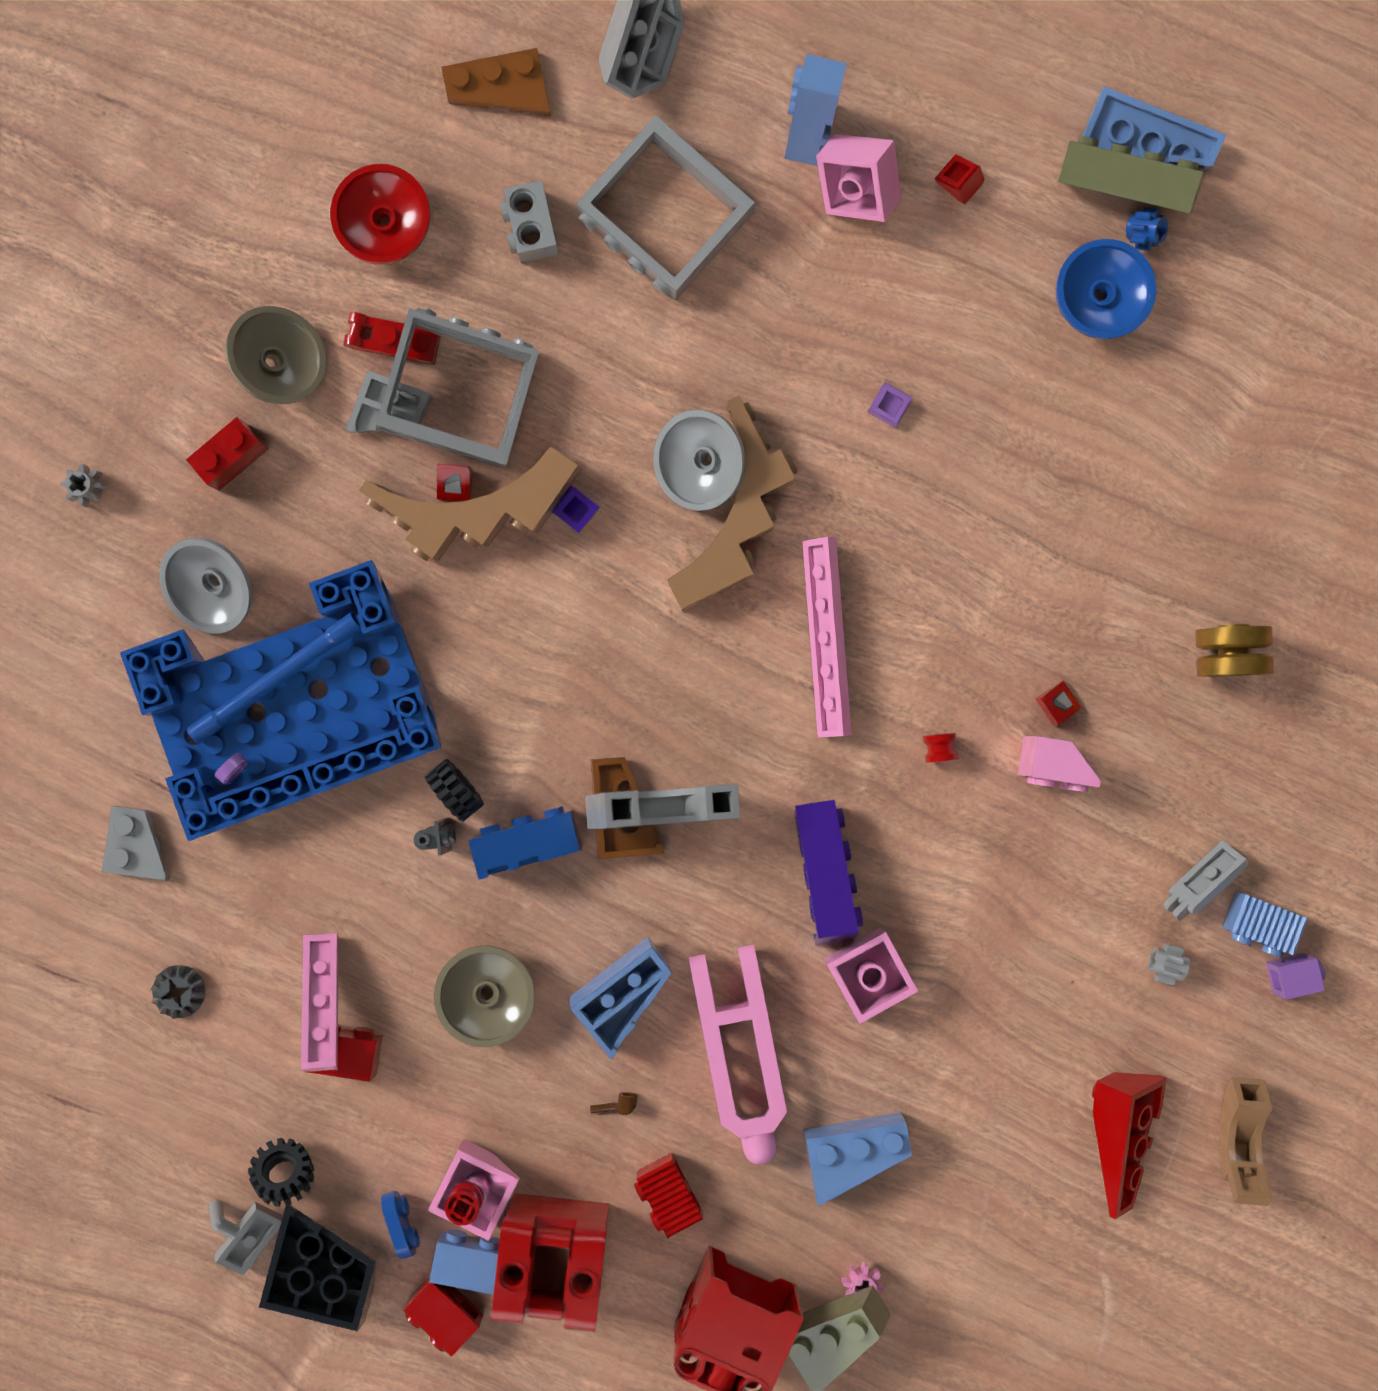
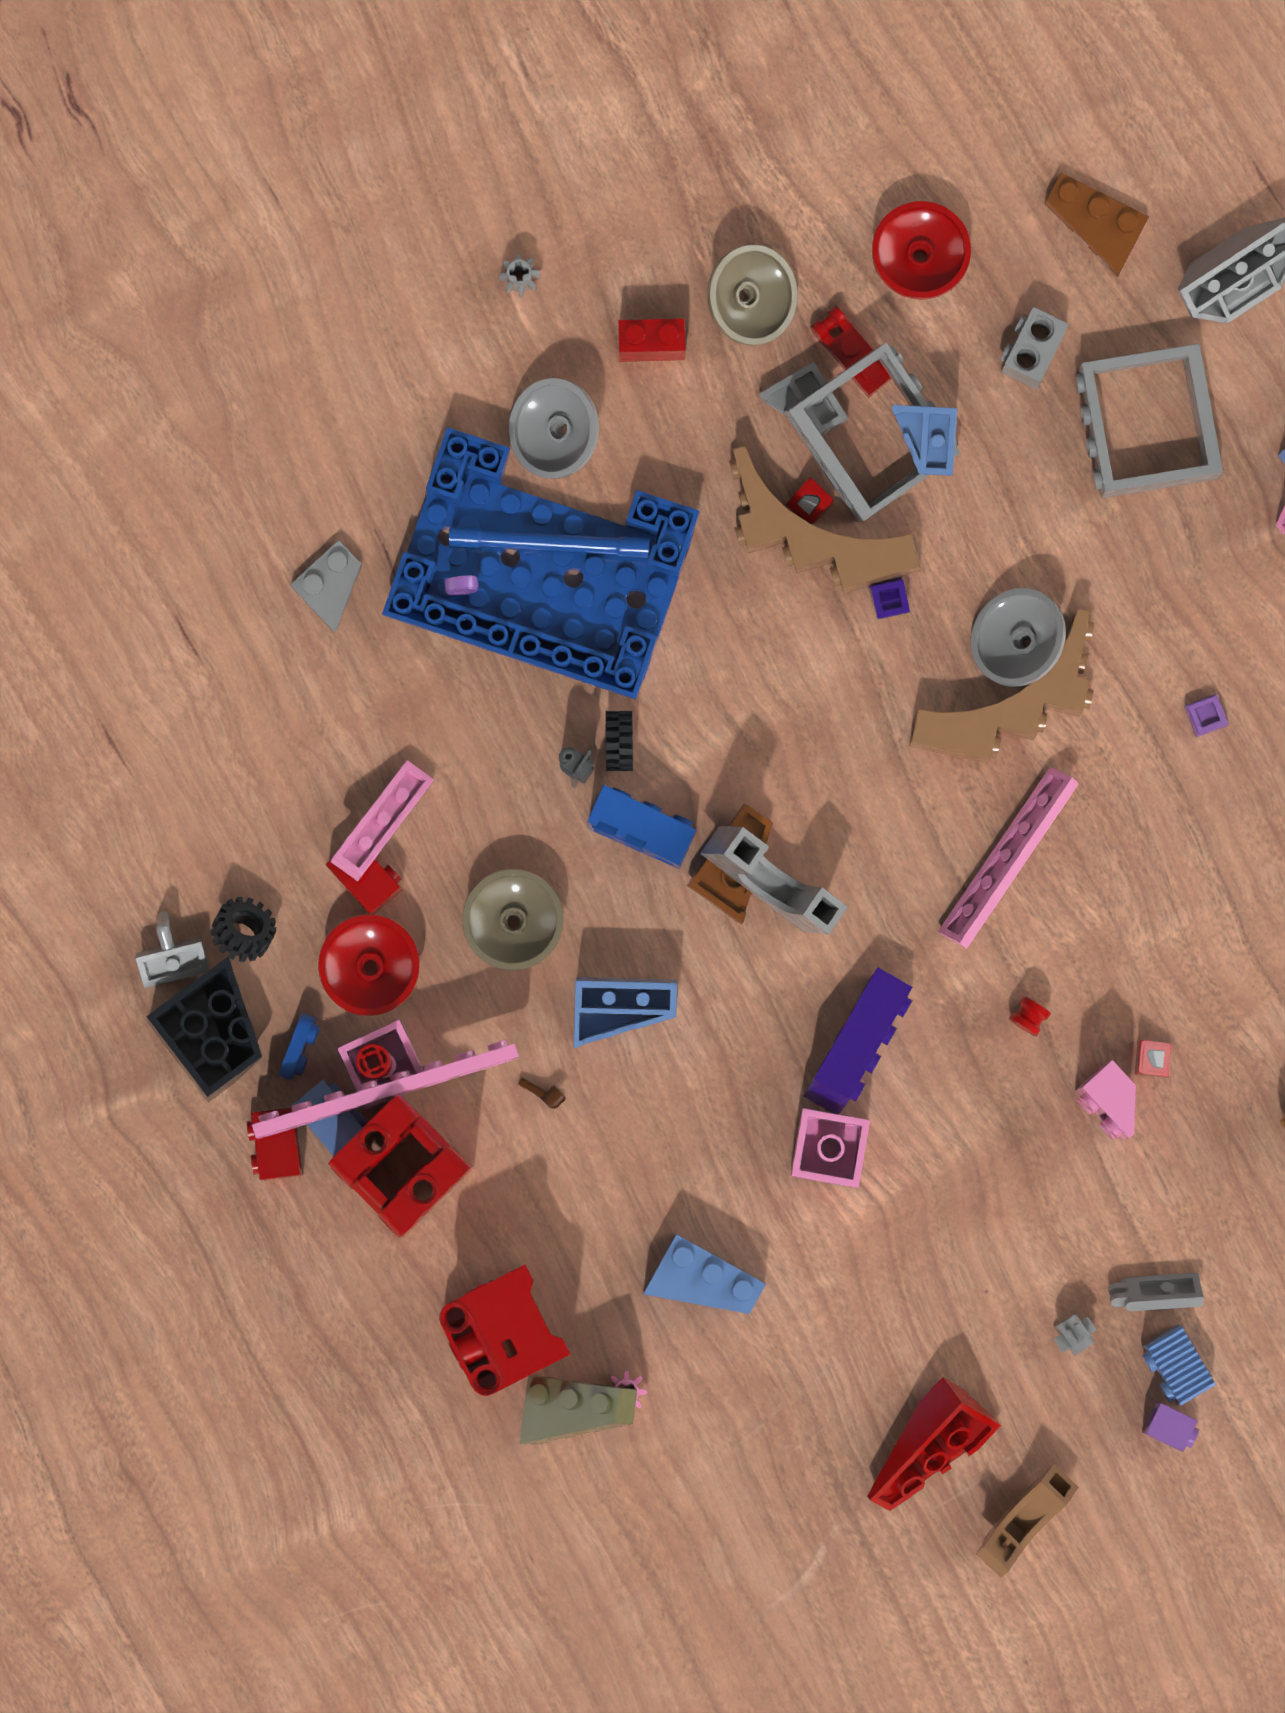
camera: 40 degrees right, 5 degrees down
(182, 977) = (279, 739): dark grey gear -> none
(389, 1139) = (344, 961): none -> red dish
(482, 1229) = (371, 1093): none -> bright pink plate
(503, 356) = (929, 436): none -> medium blue wing
(668, 1195) = (528, 1196): red brick -> none
(756, 1132) = (641, 1199): bright pink piece -> none

